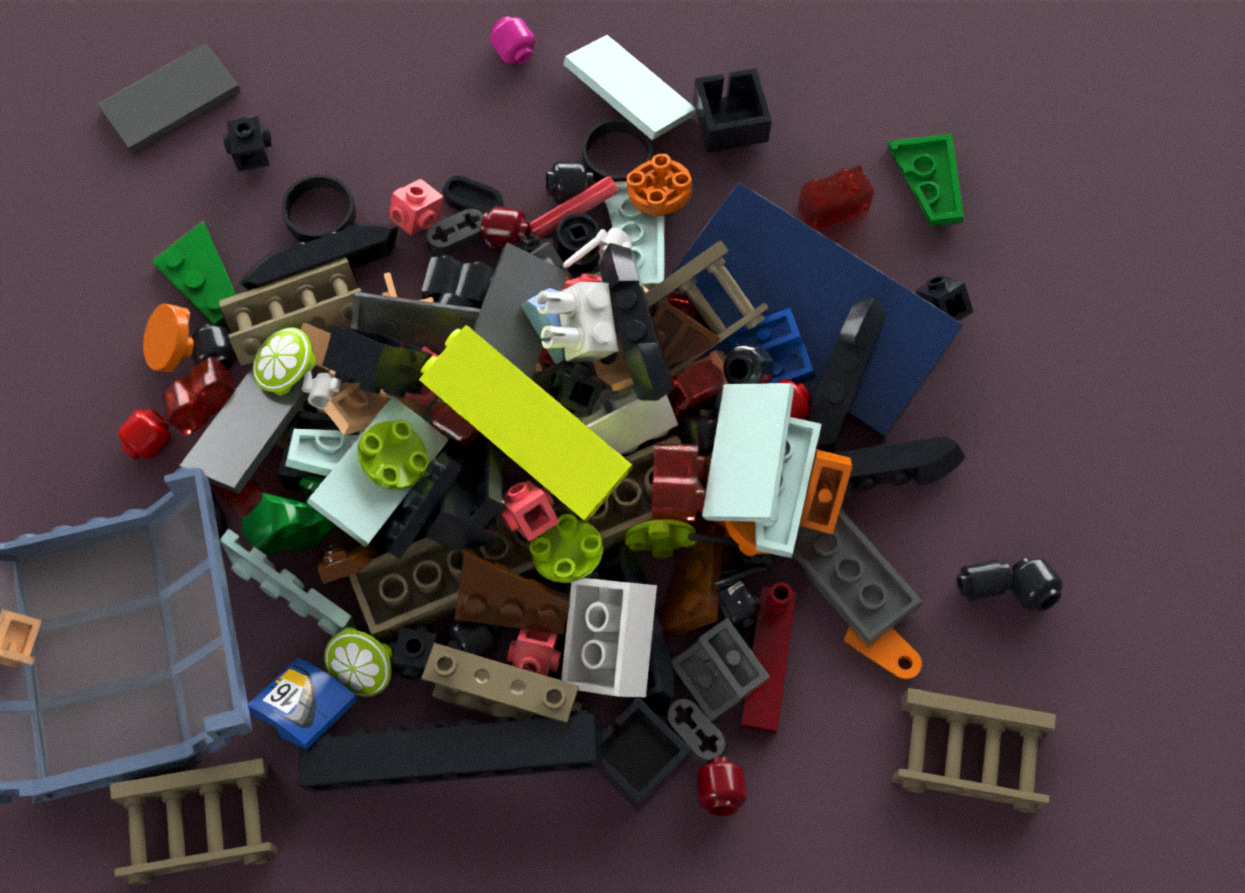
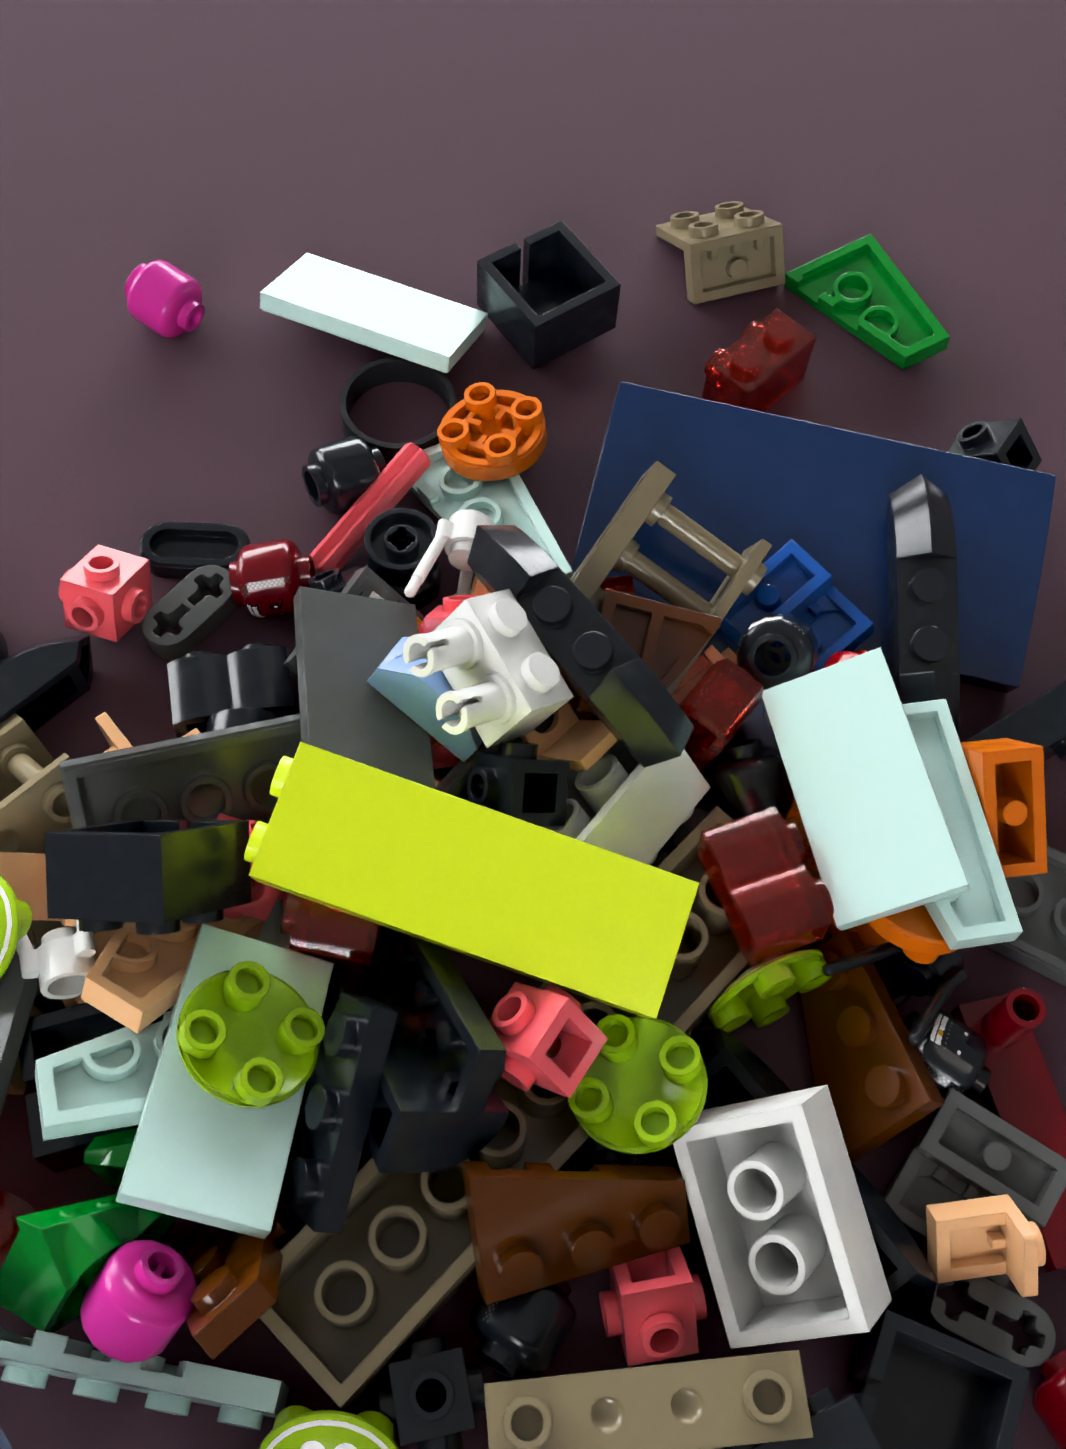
camera: 25 degrees left, 5 degrees down
(301, 551) = (137, 1301): none -> dark pink head
(703, 690) = (984, 1240): none -> light nougat bracket
(857, 113) = (727, 250): none -> dark tan bracket

